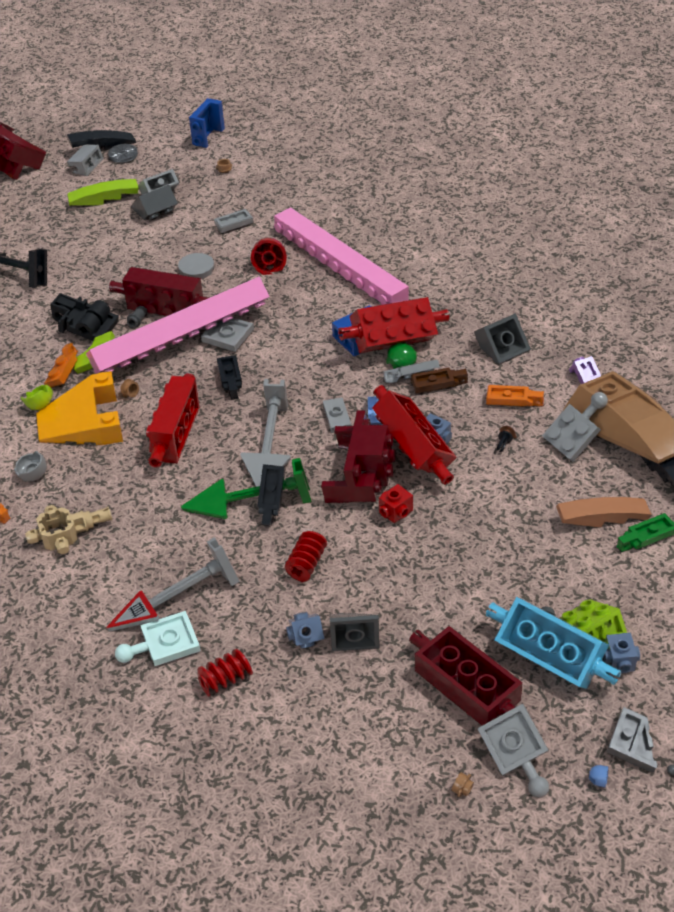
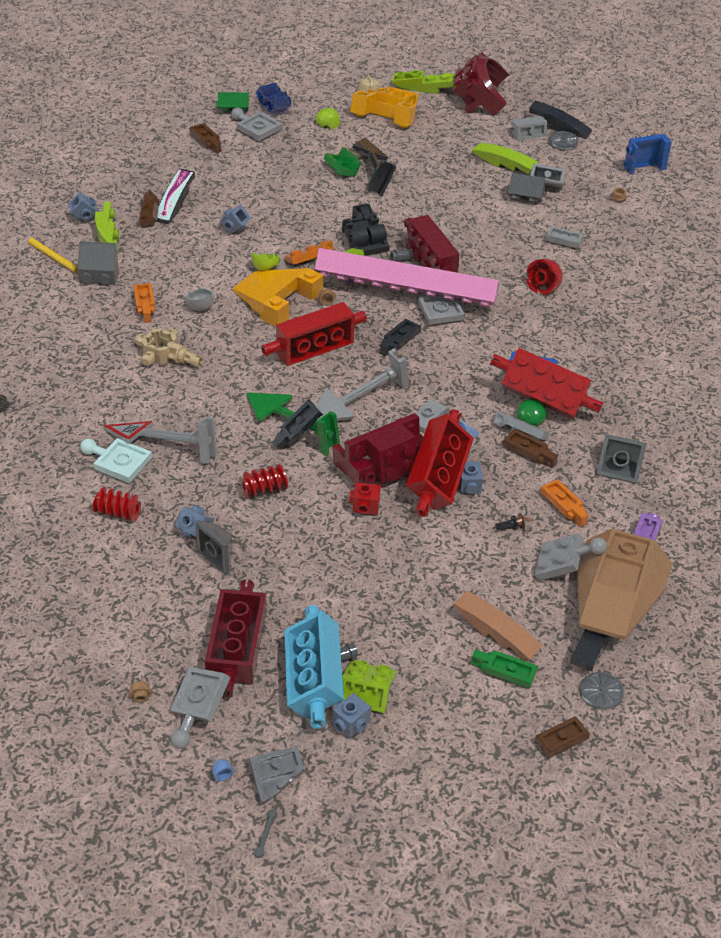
camera: 45 degrees right, 0 degrees up
(196, 265) = (492, 250): light grey tile -> none
(340, 257) = (595, 316): bright pink brick -> none

